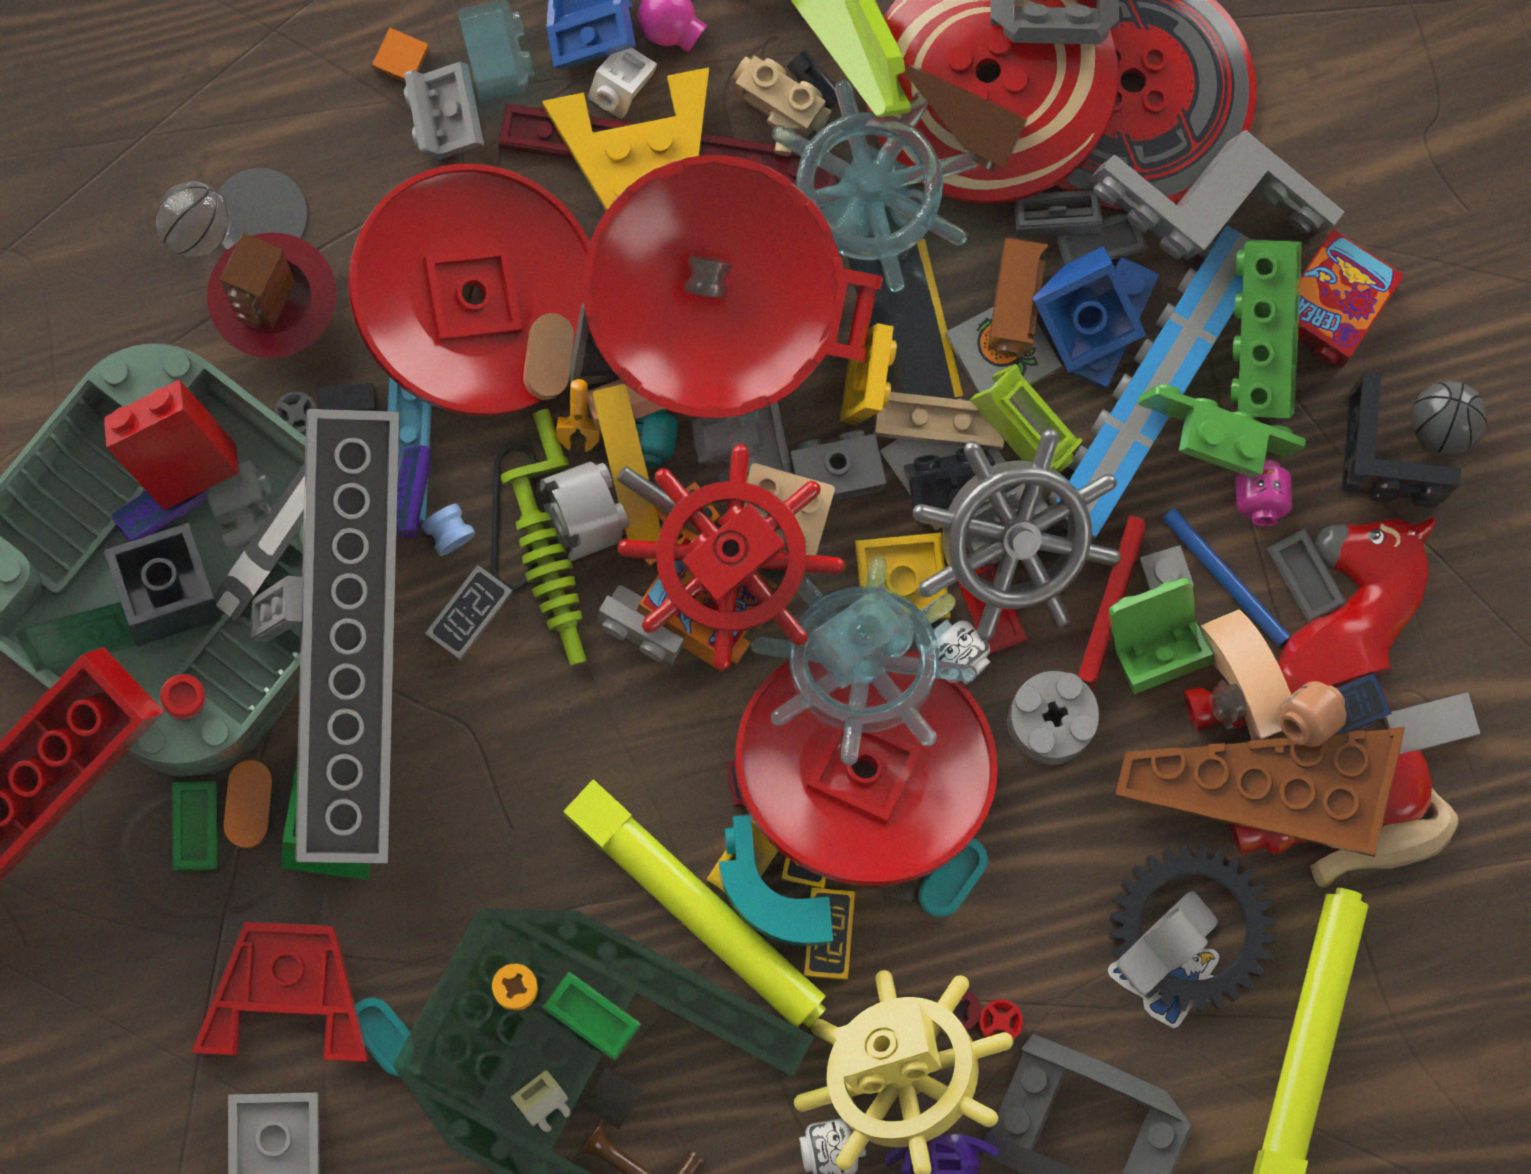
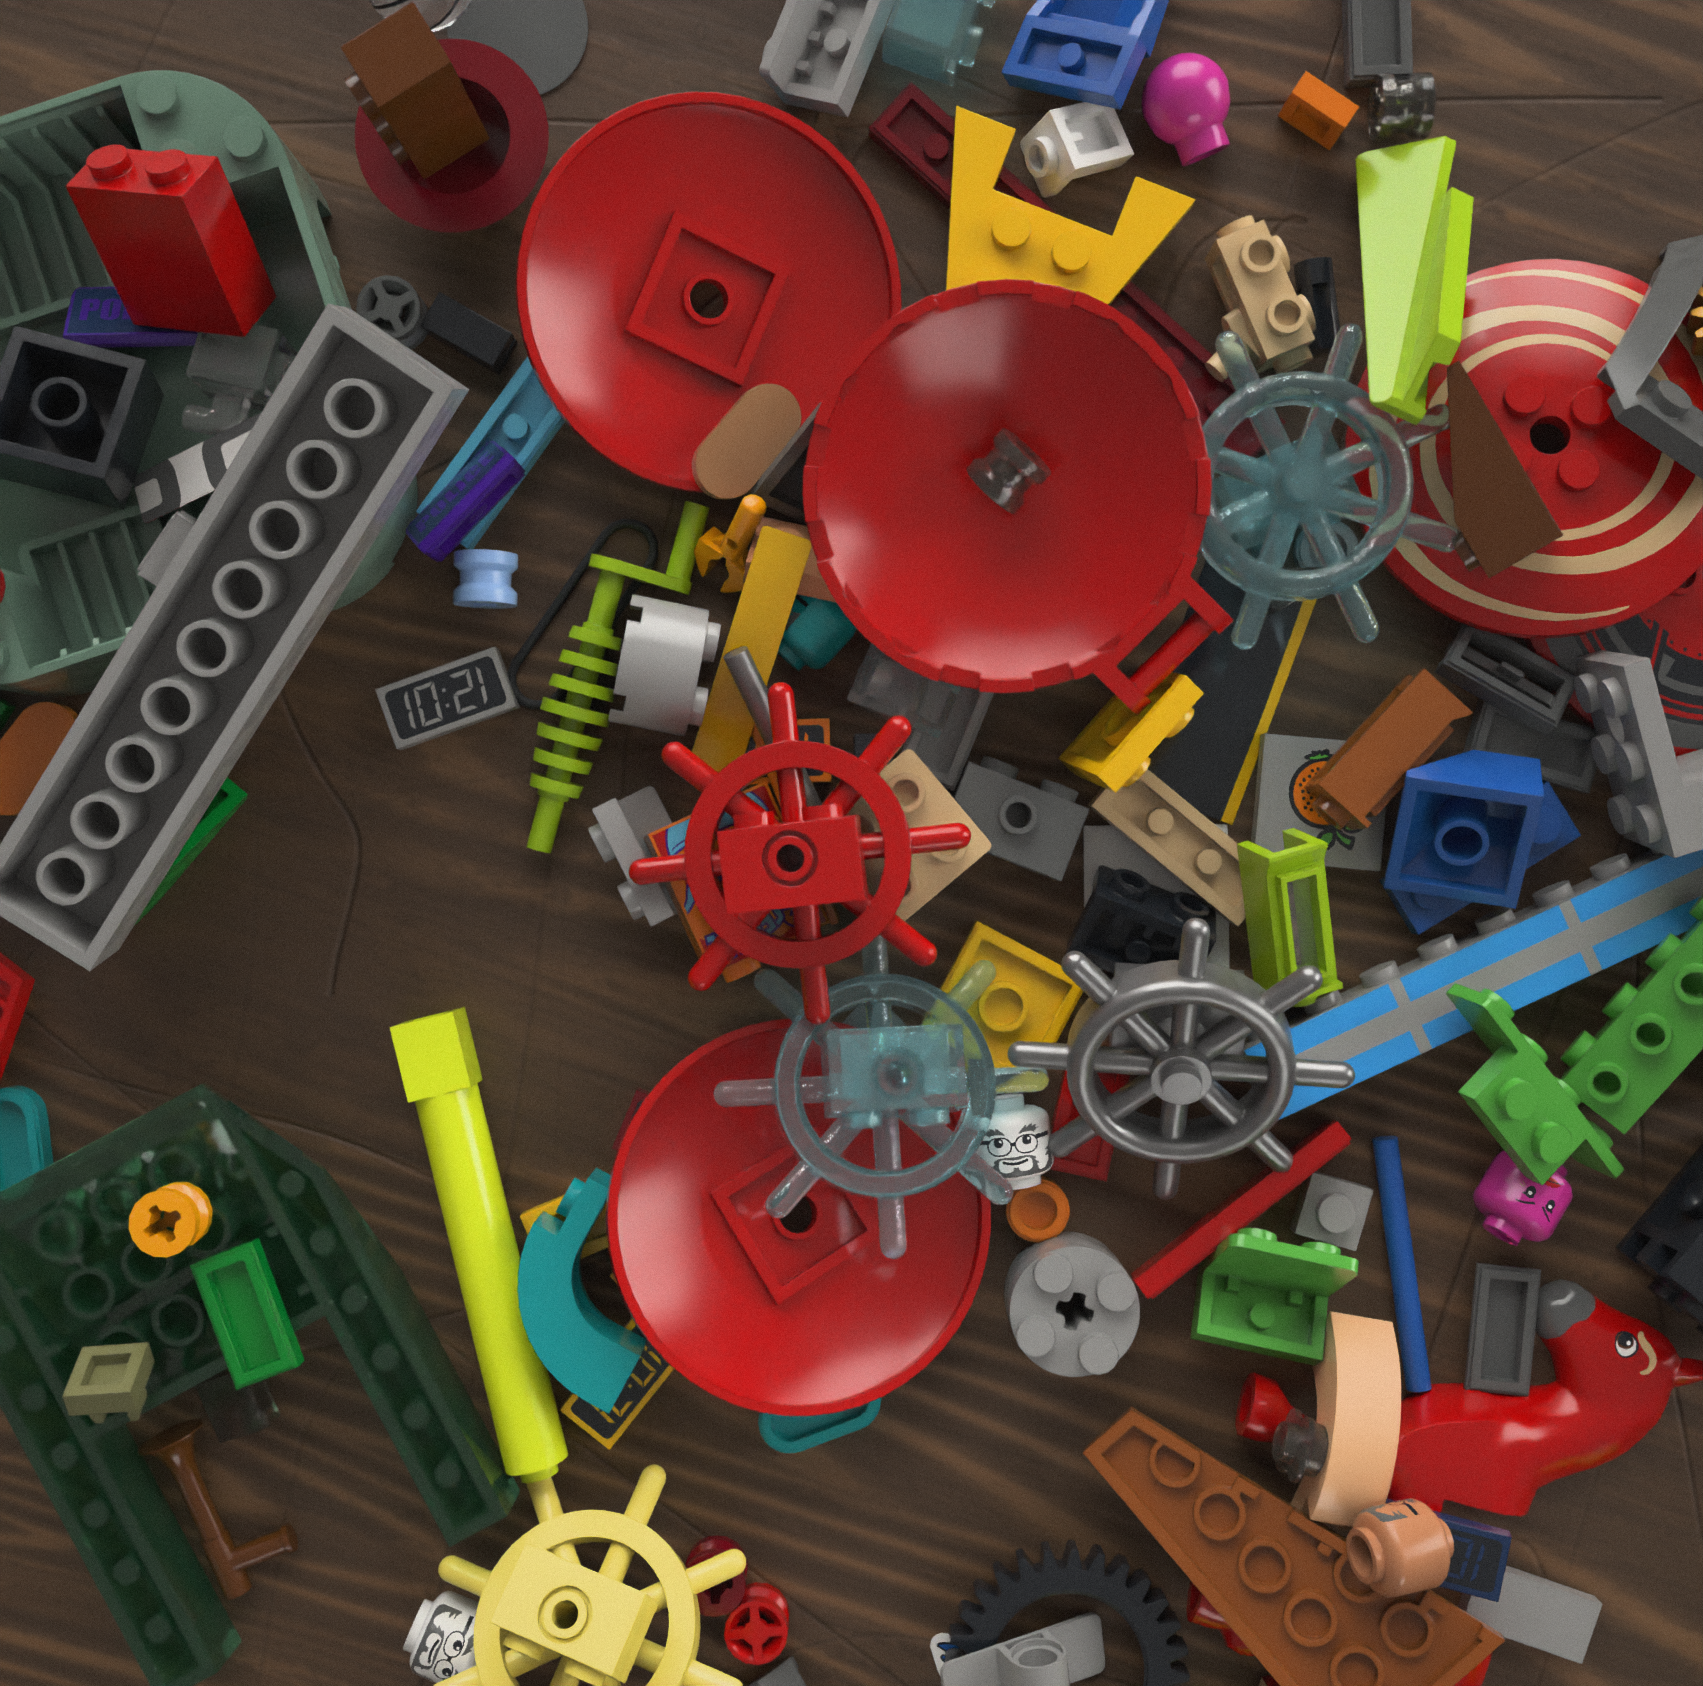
camera: 40 degrees right, 10 degrees up
(999, 682) = (1038, 1211): none -> orange tile

